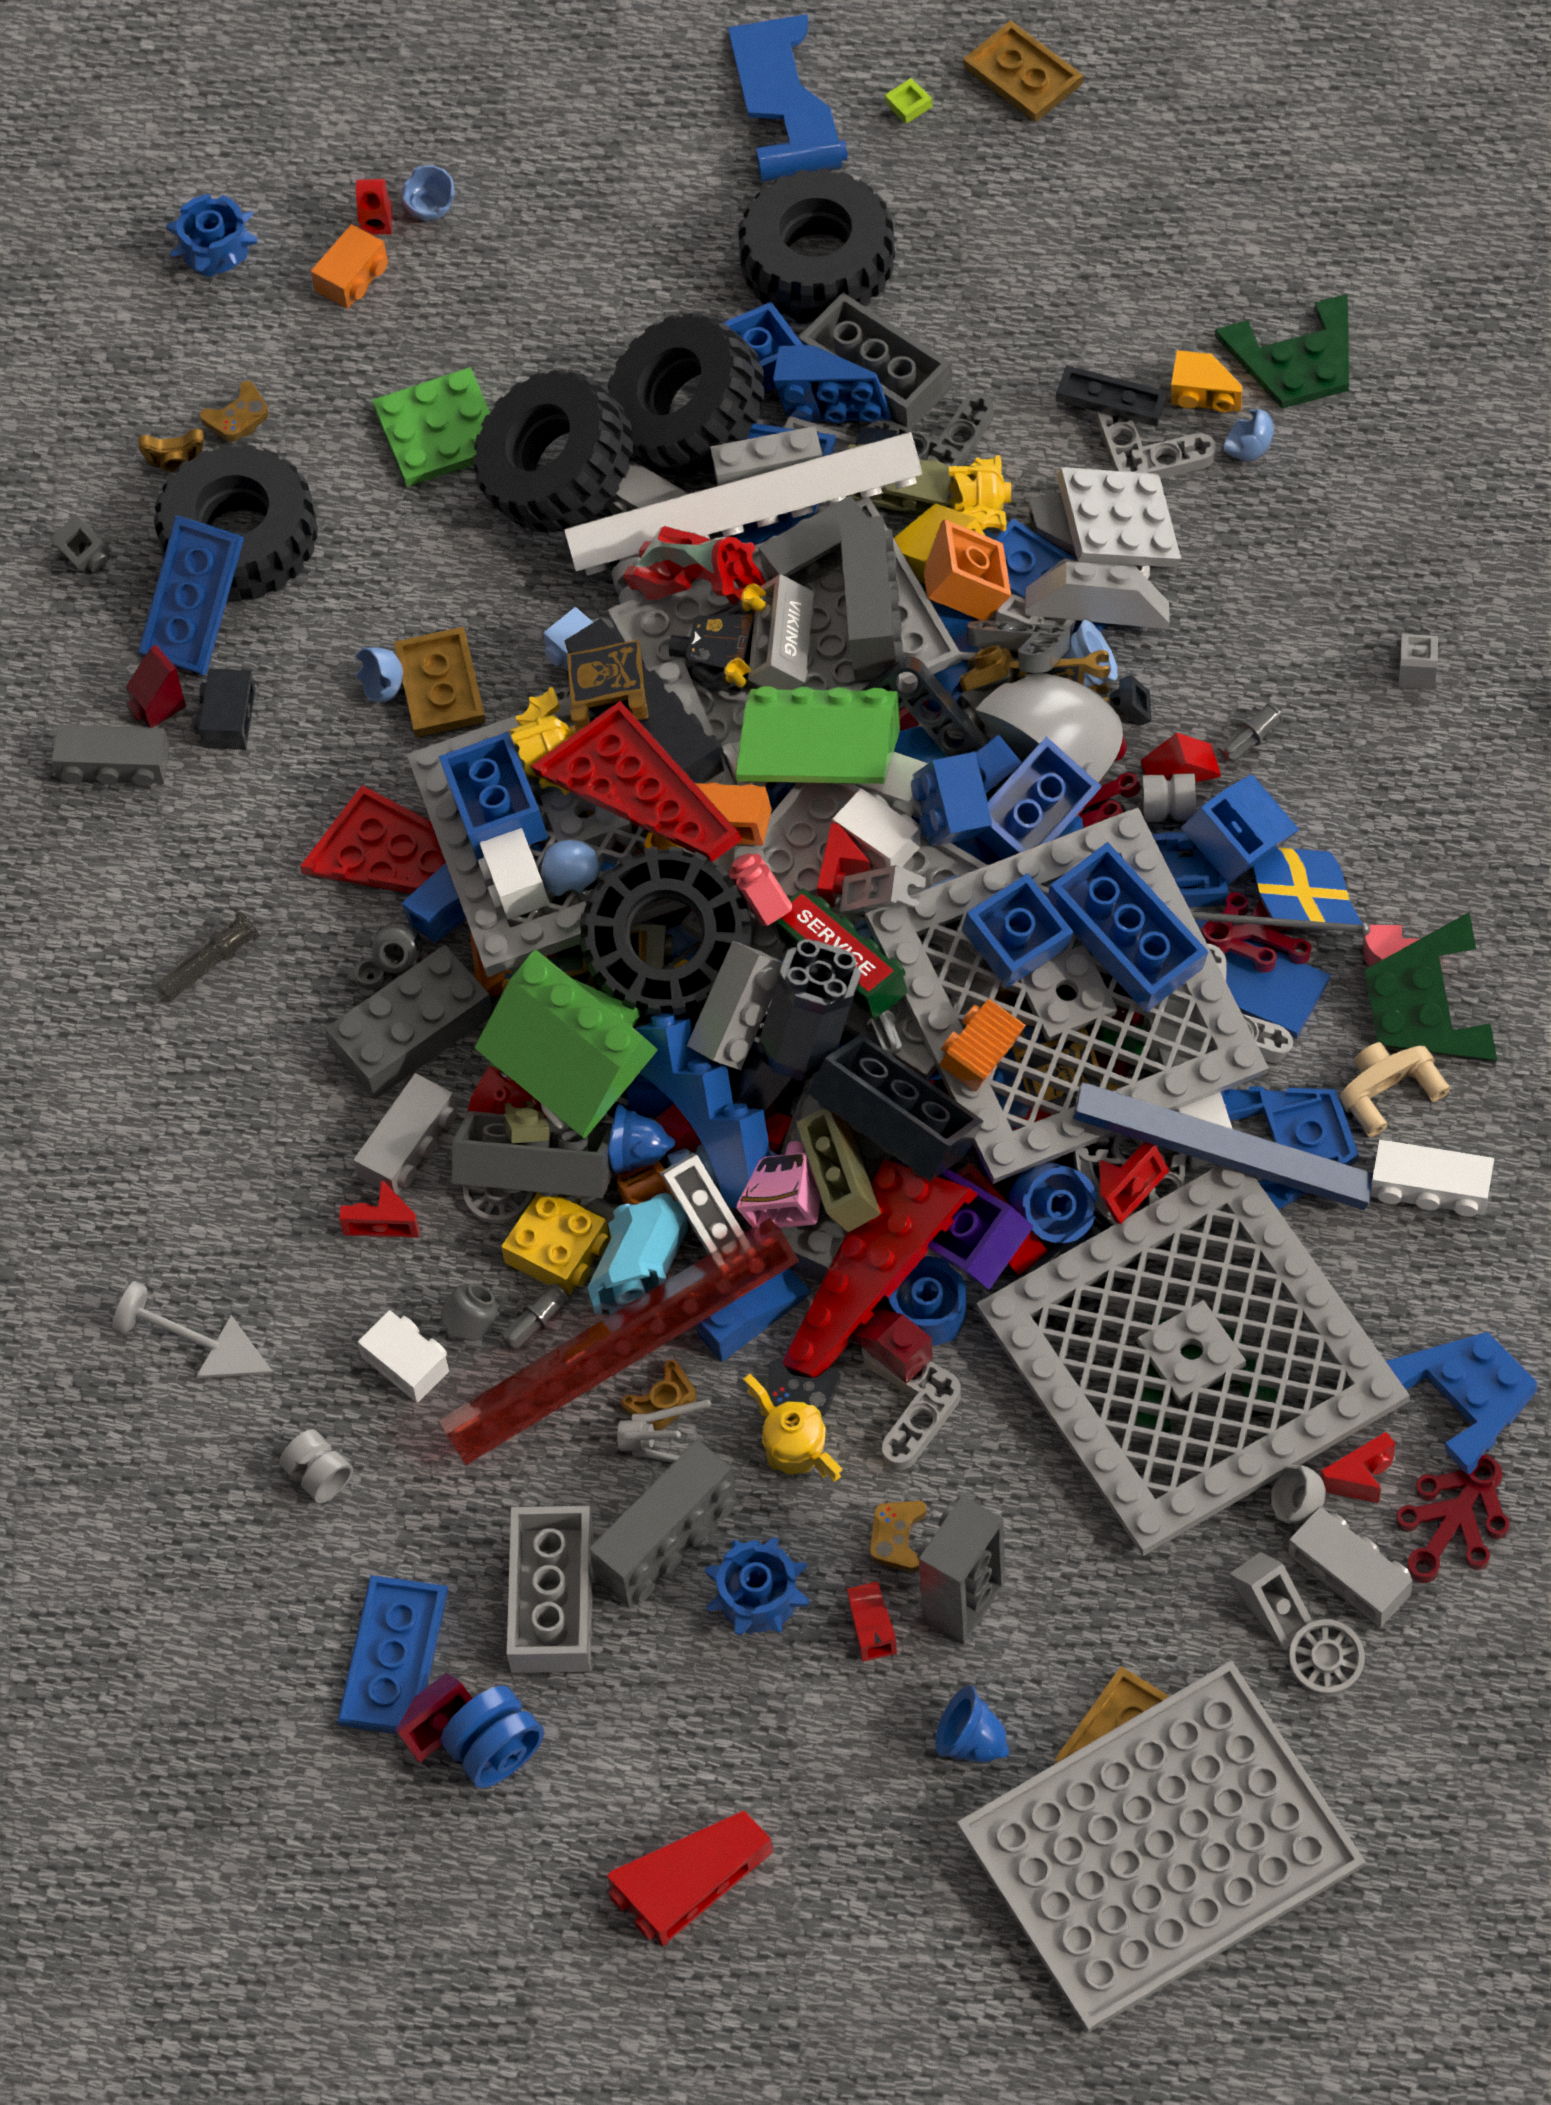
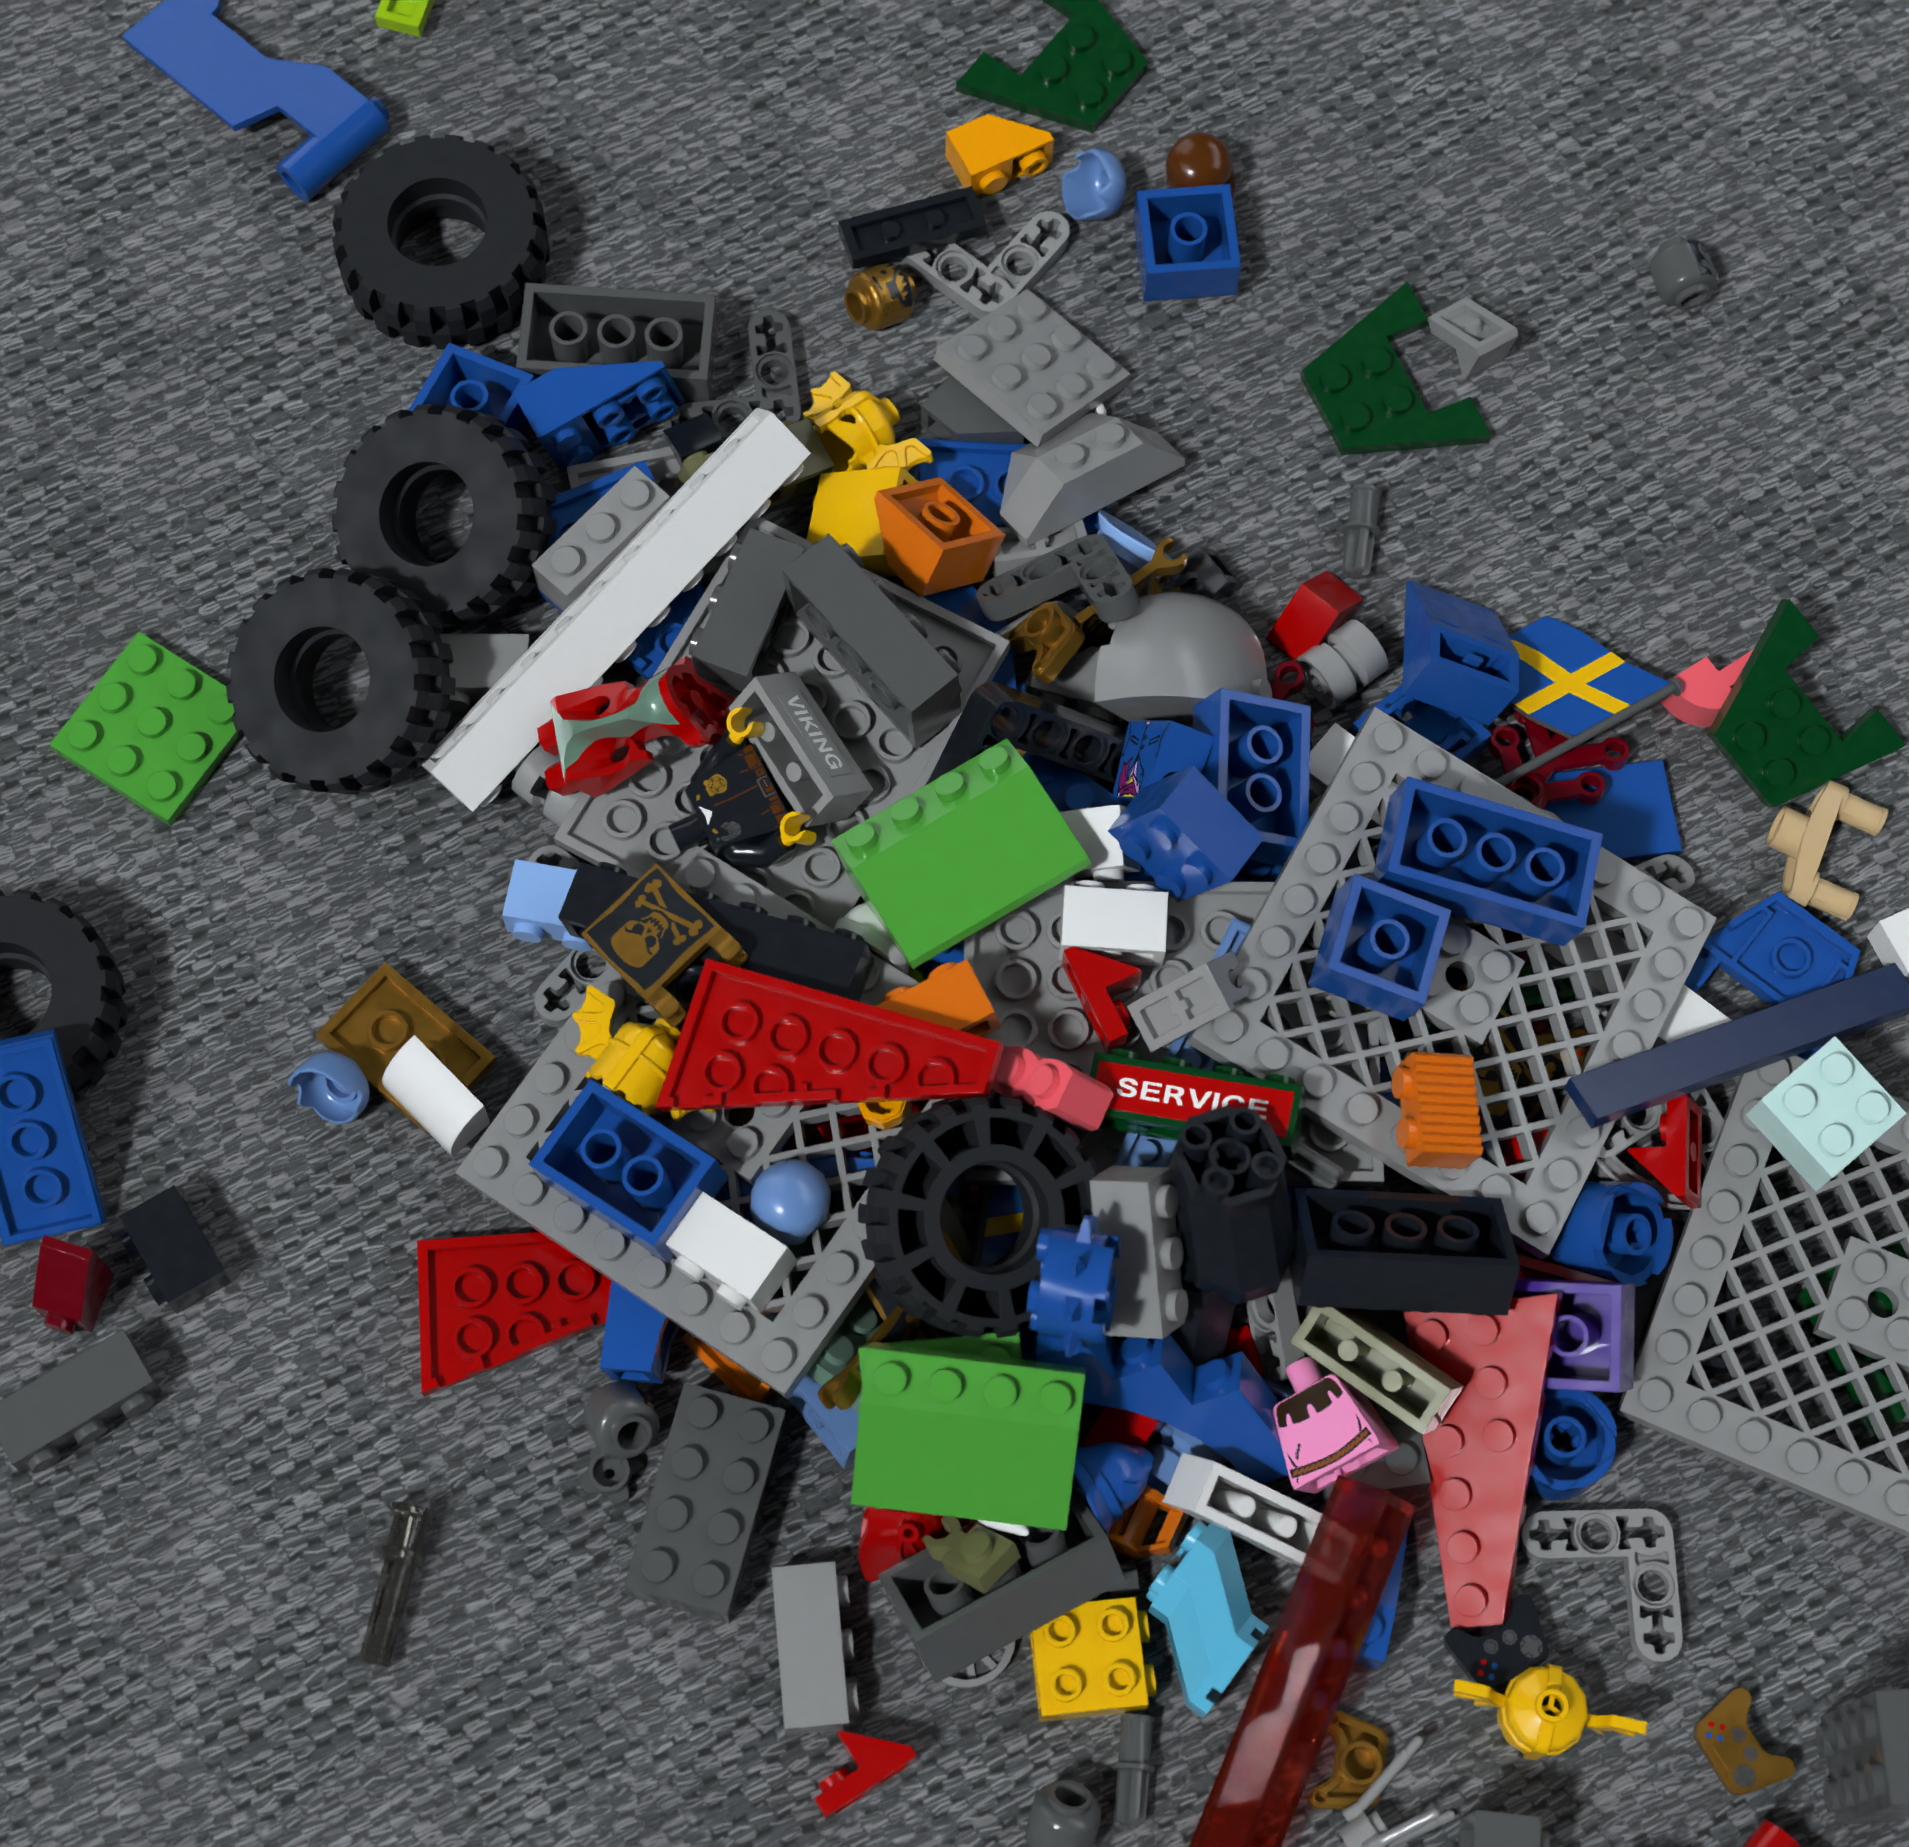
camera: 45 degrees left, 10 degrees up
(429, 707) = (434, 1096): none -> white brick
(676, 985) = (1076, 1285): none -> blue brick
(895, 1343) = (1572, 1520): dark red slope -> none
(1060, 426) = (880, 296): none -> pearl gold head
(1235, 1210) = (1825, 1113): none -> light aqua brick
(1277, 500) = (1186, 242): none -> blue brick
(1320, 459) = (1199, 161): none -> reddish brown helmet
(1326, 656) = (1369, 396): none -> dark green wing

